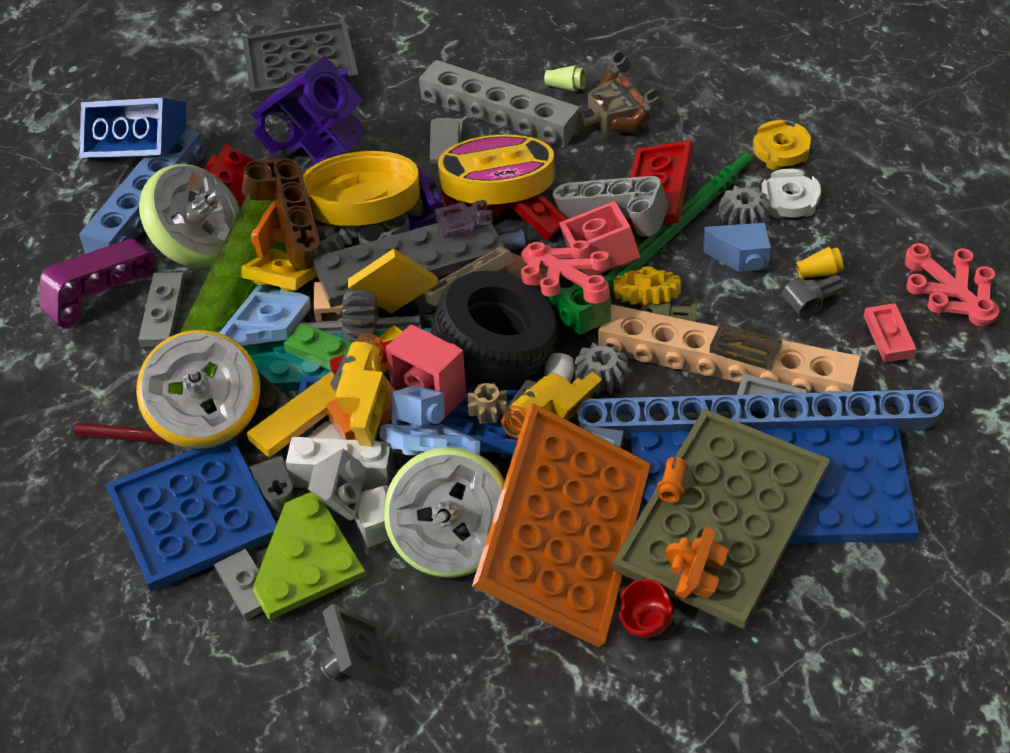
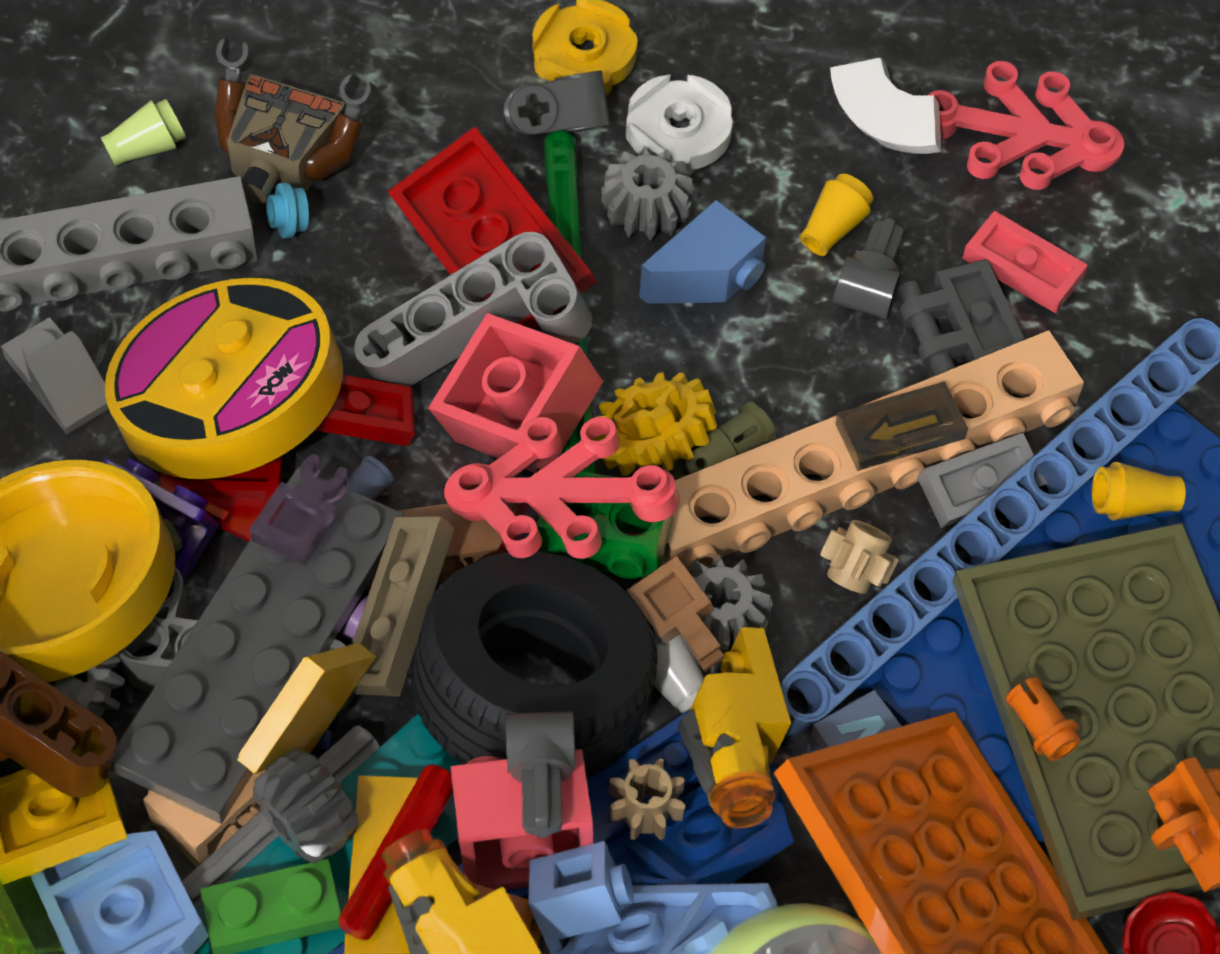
camera: 50 degrees left, 10 degrees up
(439, 334) = (541, 758): none -> dark grey axle
(570, 346) = (675, 607): none -> medium nougat plate
(590, 133) = (288, 210): none -> medium azure plate
(678, 383) = (859, 556): none -> tan gear
(744, 154) = (566, 104): none -> dark grey piece
(826, 438) = (1131, 492): none -> yellow cone
(843, 334) = (974, 309): none -> dark grey plate
(890, 238) = (885, 112): none -> white tile

